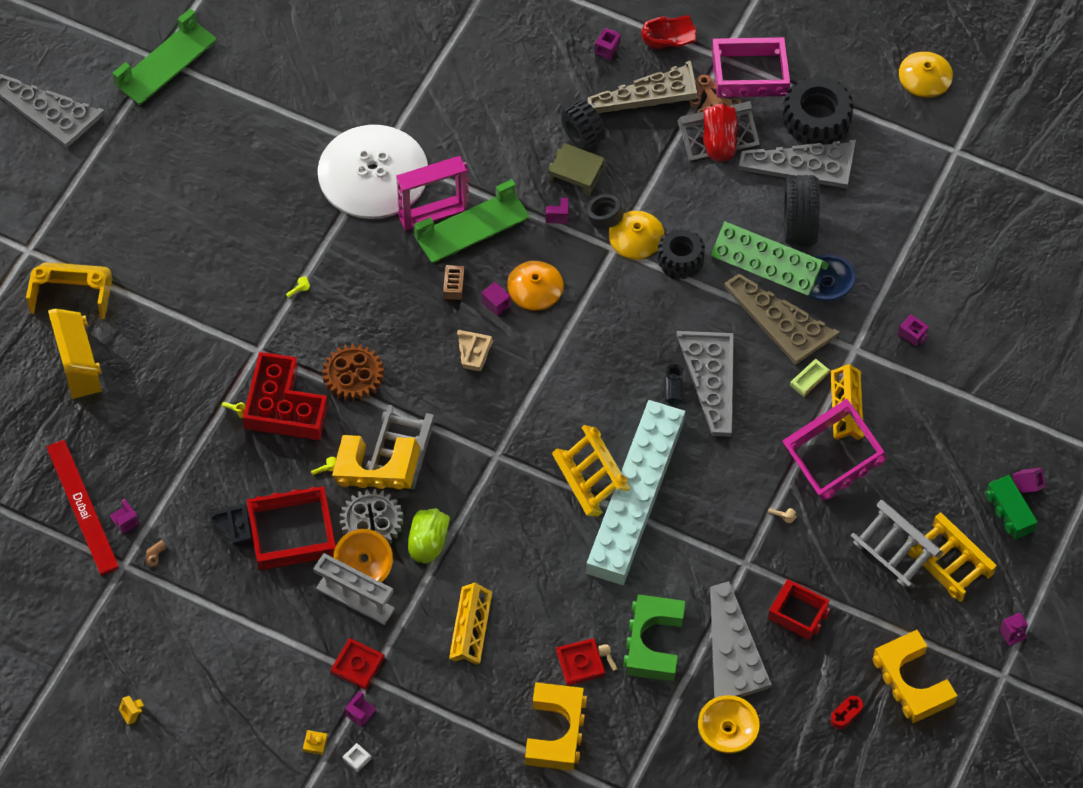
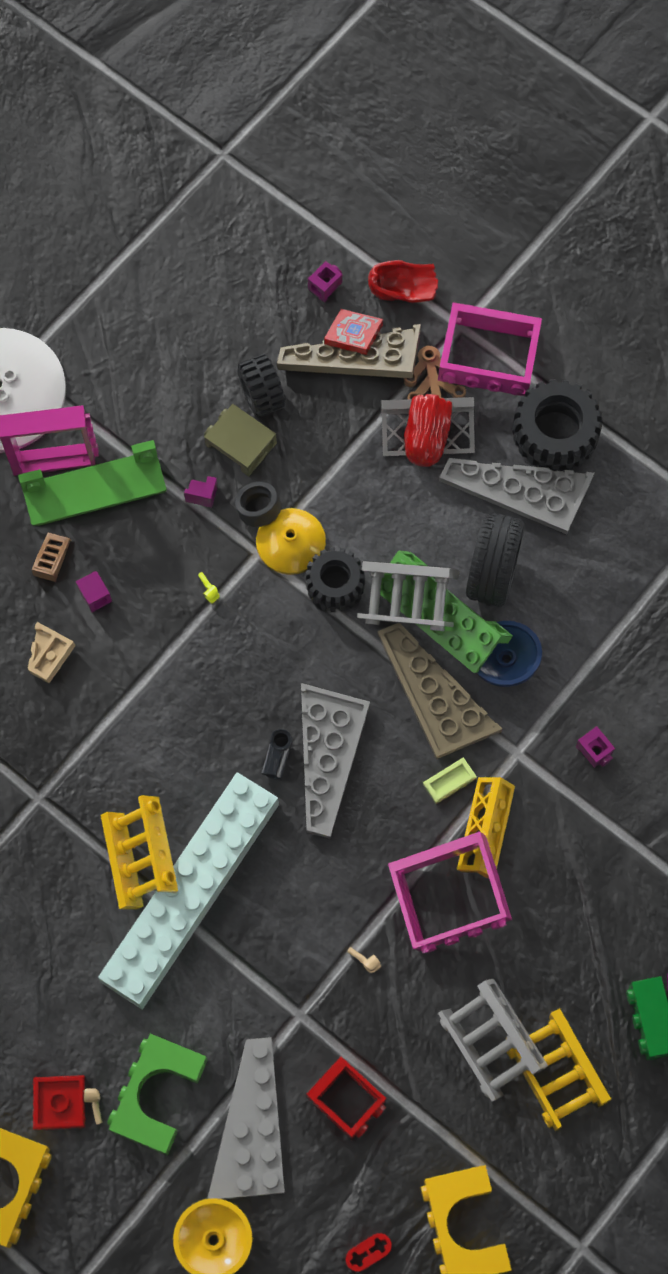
camera: 15 degrees right, 10 degrees up
(533, 293) = (149, 595): light orange dish -> none
(586, 281) = (212, 592): none -> neon yellow hand
(641, 75) = (353, 331): none -> tile
(730, 234) = (420, 575): none -> light grey fence
(1014, 629) = (611, 1190): magenta brick -> none

